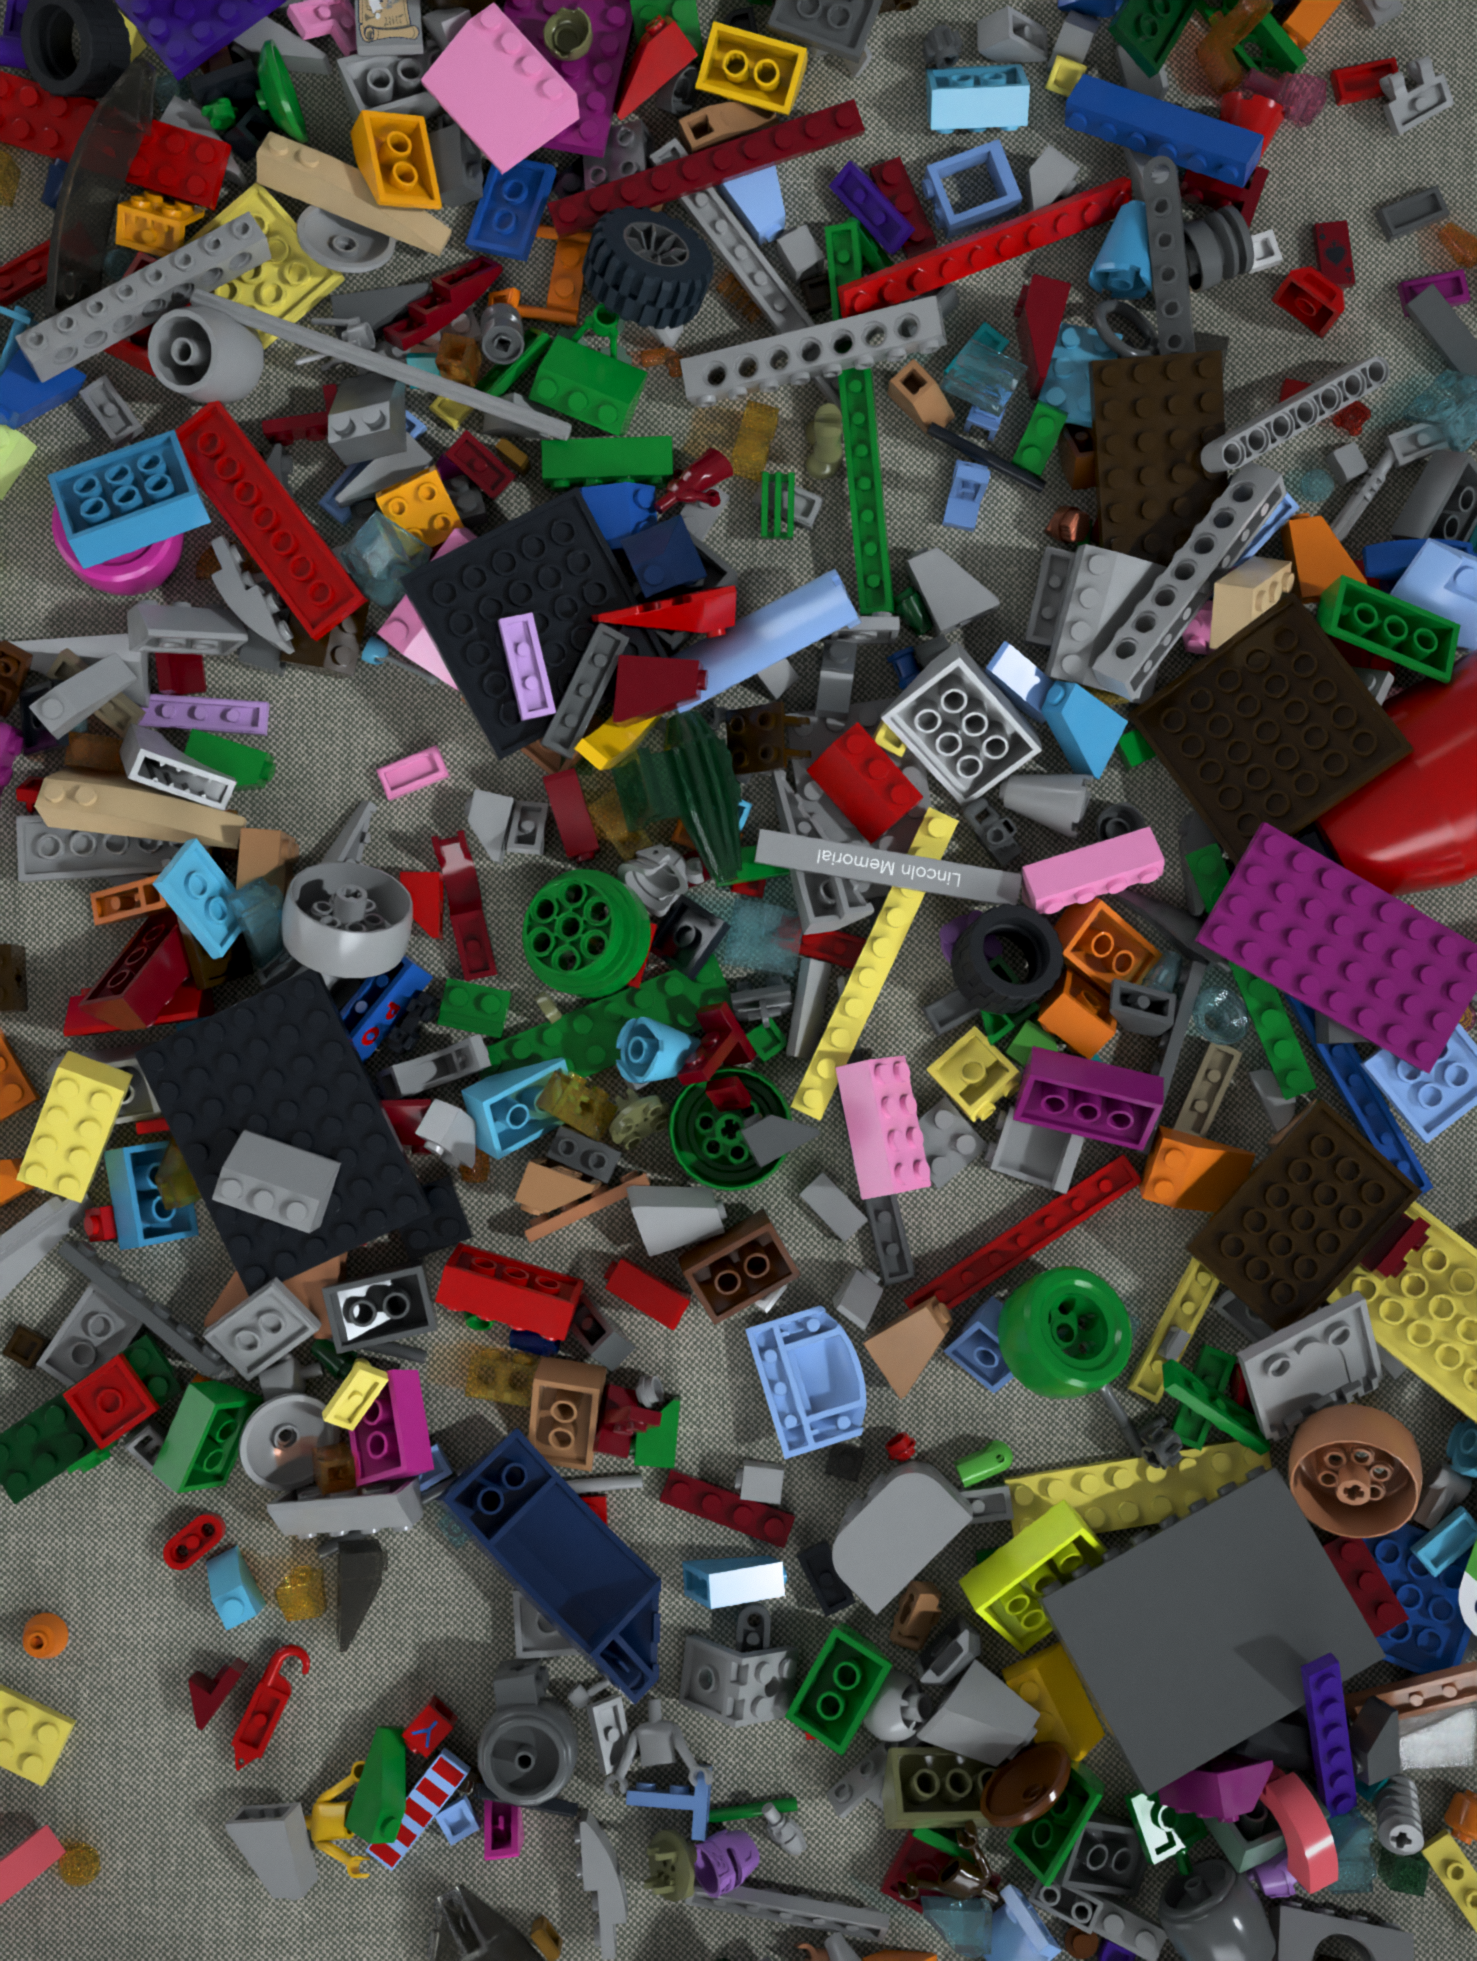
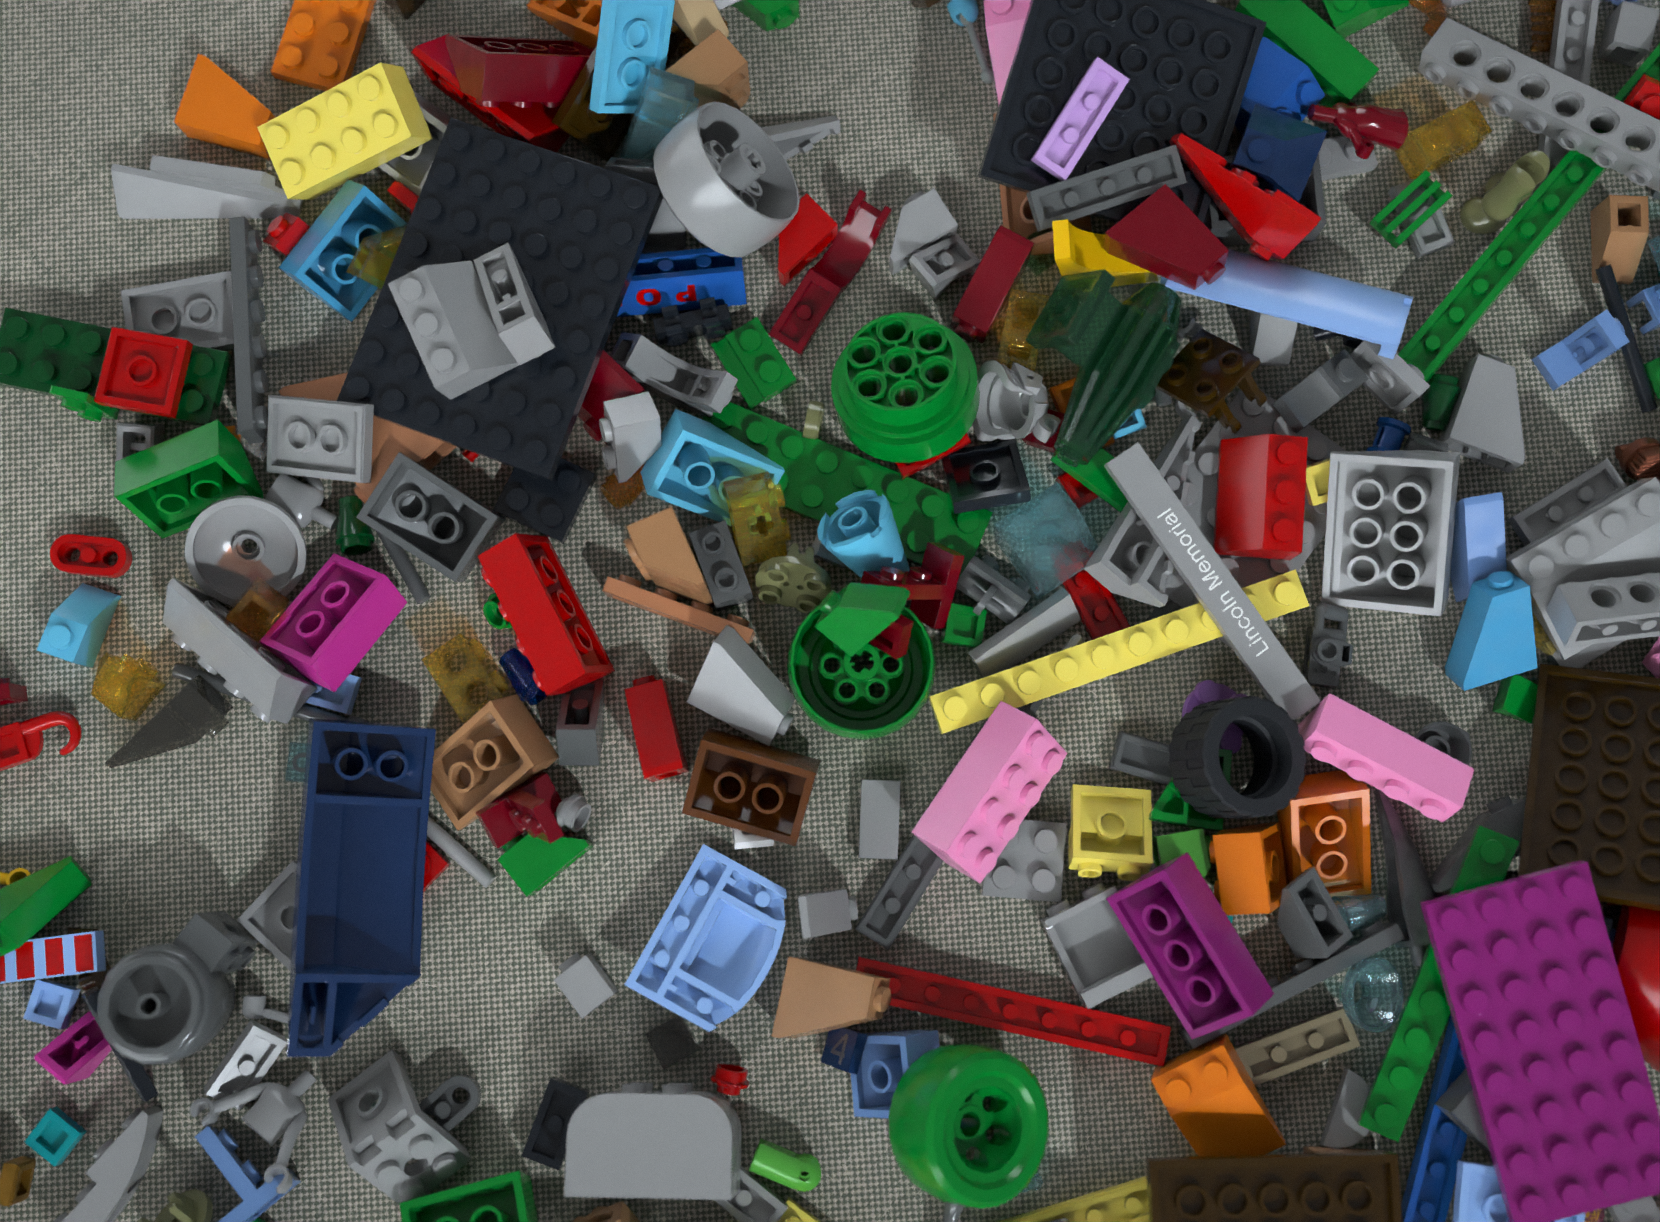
camera: 45 degrees right, 5 degrees down
(26, 1346) = (128, 270): dark brown tile -> none
(300, 1132) = (513, 305): none -> light grey slope
(355, 1395) = (335, 565): light yellow tile -> none
(412, 773) = (896, 133): bright pink tile -> none
(429, 1727) = (110, 902): red brick -> none
(542, 1890) = (55, 1136): none -> teal plate
(702, 1105) = (859, 613): none -> green slope
(727, 1508) = (534, 978): dark red plate -> none
(733, 1580) = (478, 1043): slope -> none
(773, 1136) = (893, 701): dark grey slope -> none
(817, 293) = (1611, 76): dark brown tile -> none
(949, 1362) = (844, 1049): none -> dark blue tile
(1049, 799) = (1404, 666): light grey cone -> none

